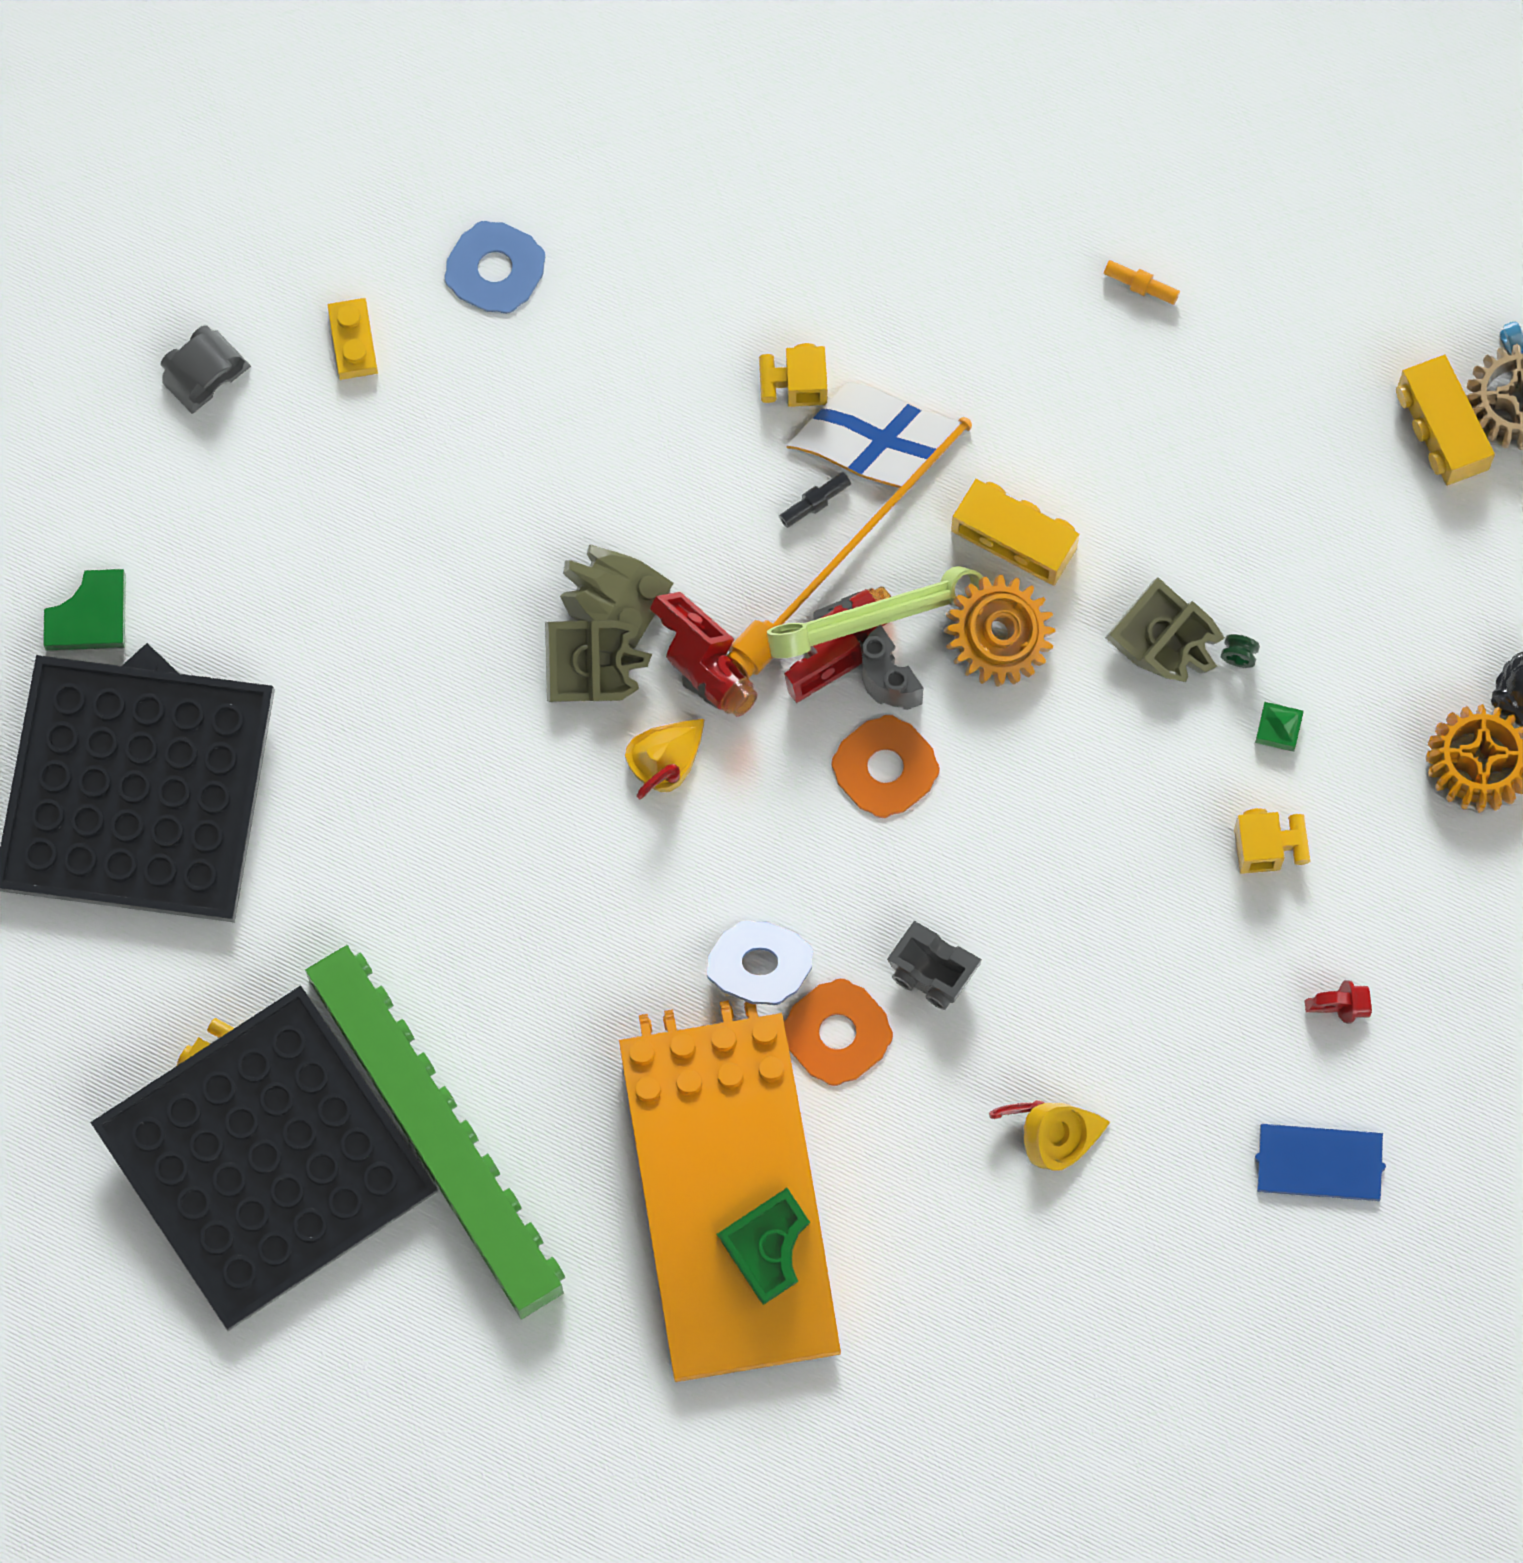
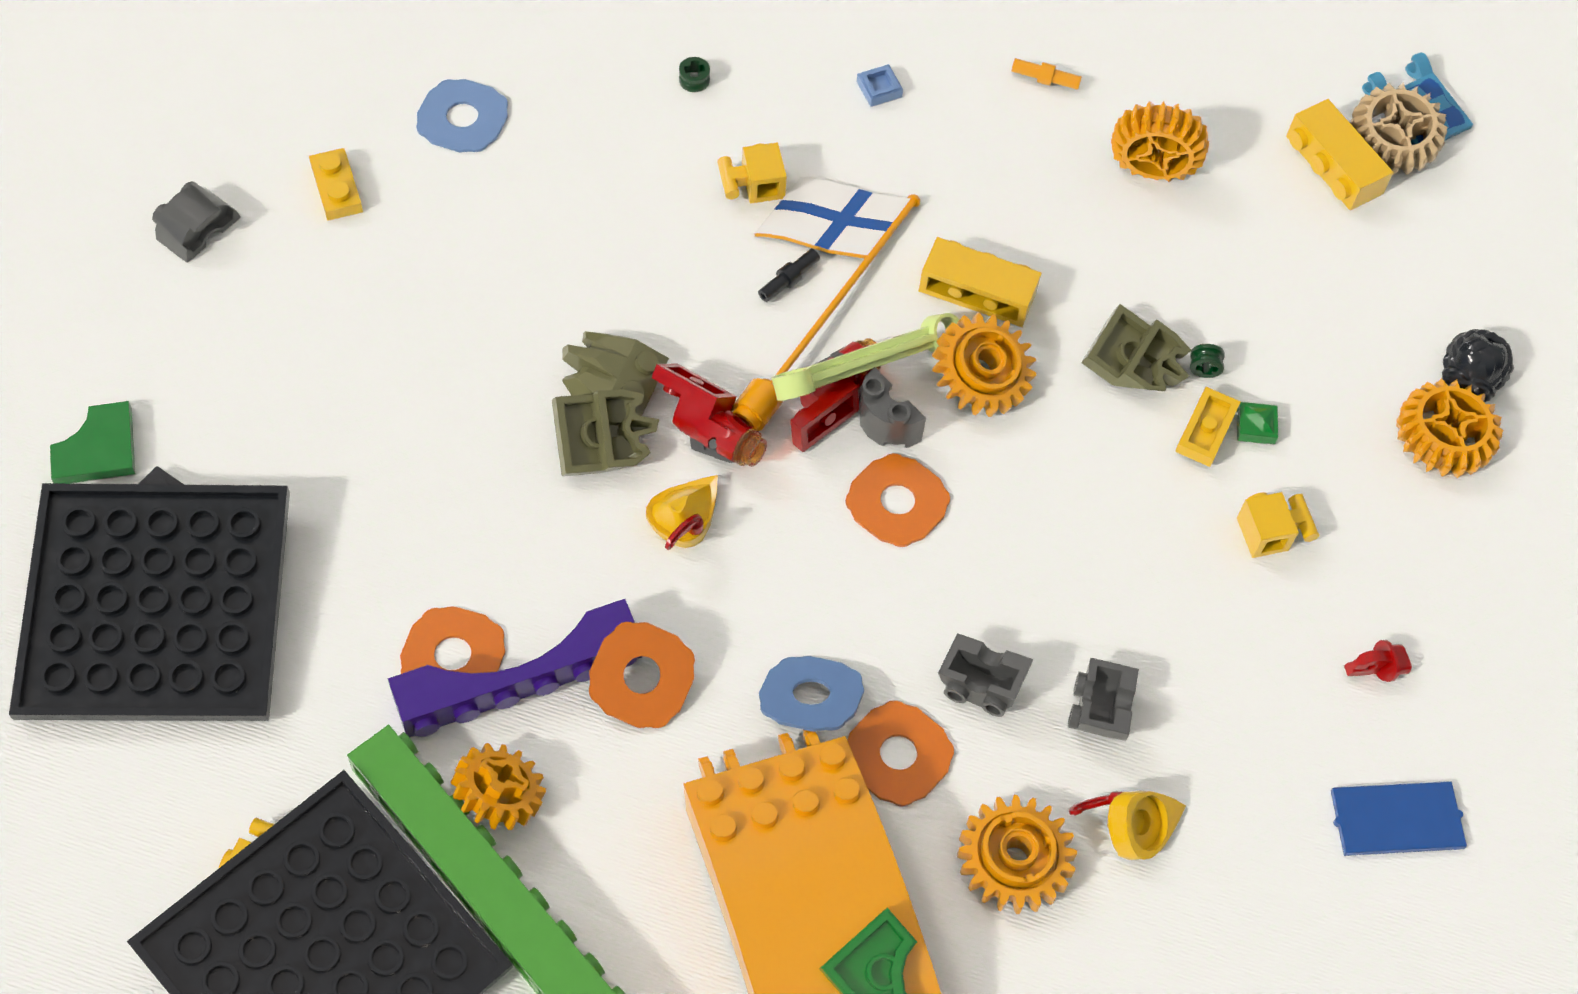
camera: 15 degrees left, 10 degrees down
(395, 921) = (438, 697): none -> dark purple arch
(423, 907) = (439, 624): none -> orange piece
(444, 1018) = (498, 786): none -> light orange gear
(604, 956) = (607, 674): none -> orange piece
(760, 250) = (698, 65): none -> dark green bush
(931, 1123) = (1010, 878): none -> light orange gear
(953, 277) = (879, 85): none -> medium blue tile
(1050, 1007) = (1105, 699): none -> dark grey cylinder
(1223, 725) = (1207, 426): none -> yellow plate
(1242, 389) = (1160, 141): none -> light orange gear

